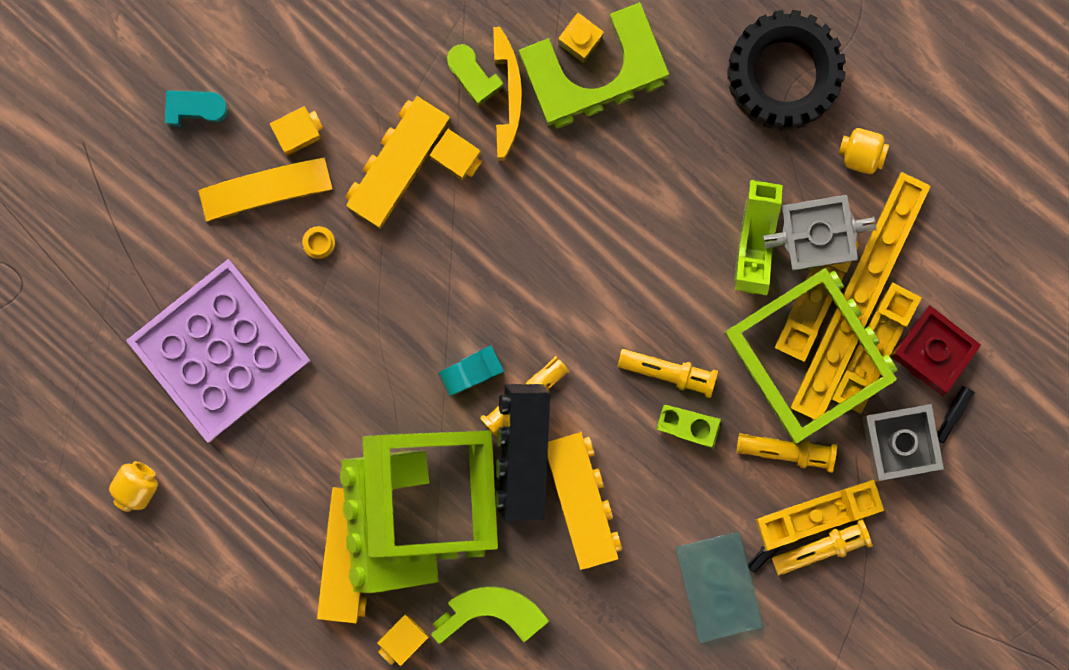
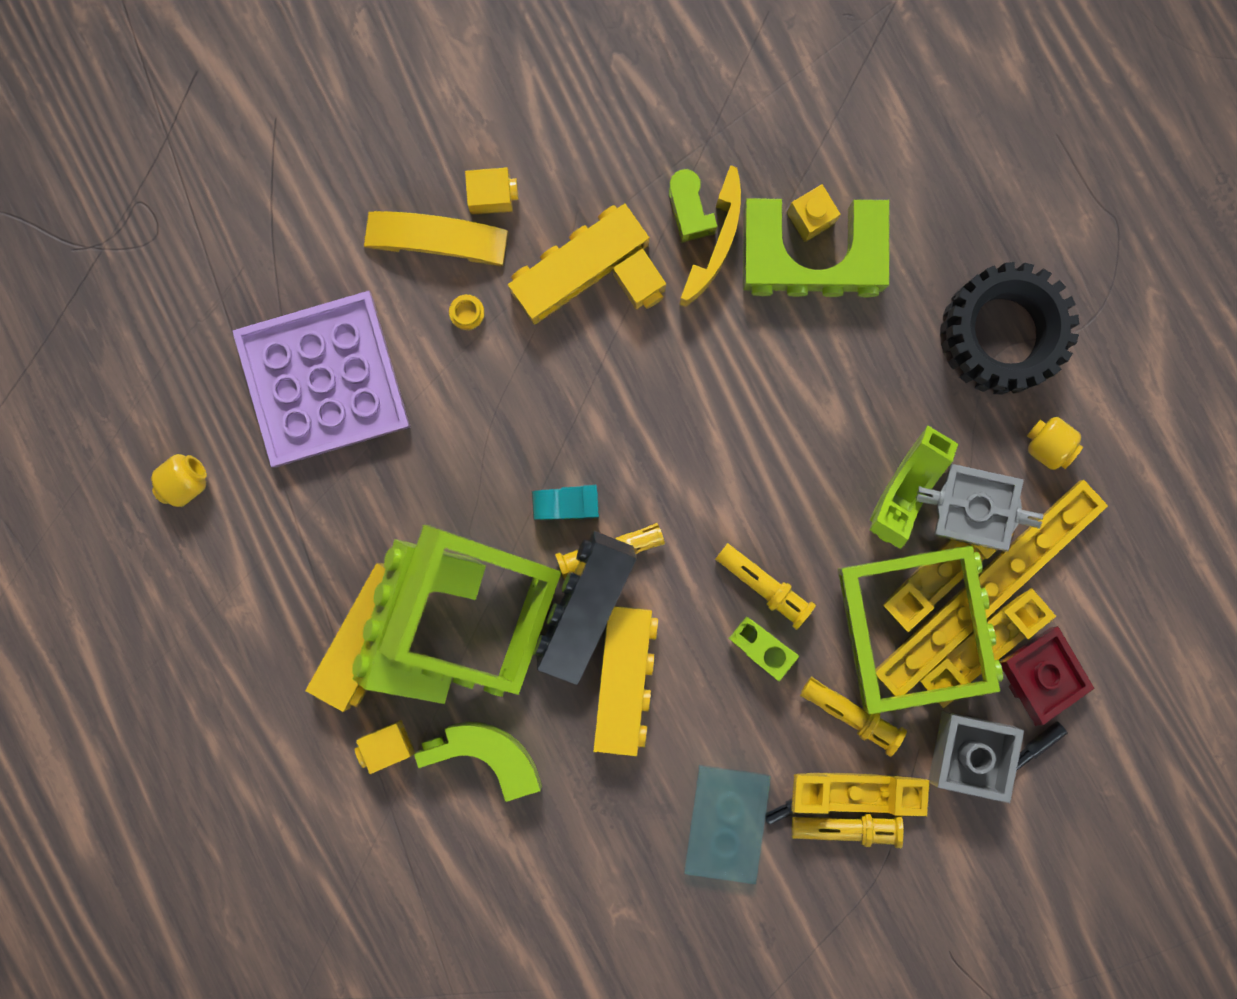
camera: 25 degrees right, 0 degrees up
(194, 105) = (399, 125): teal leg -> none

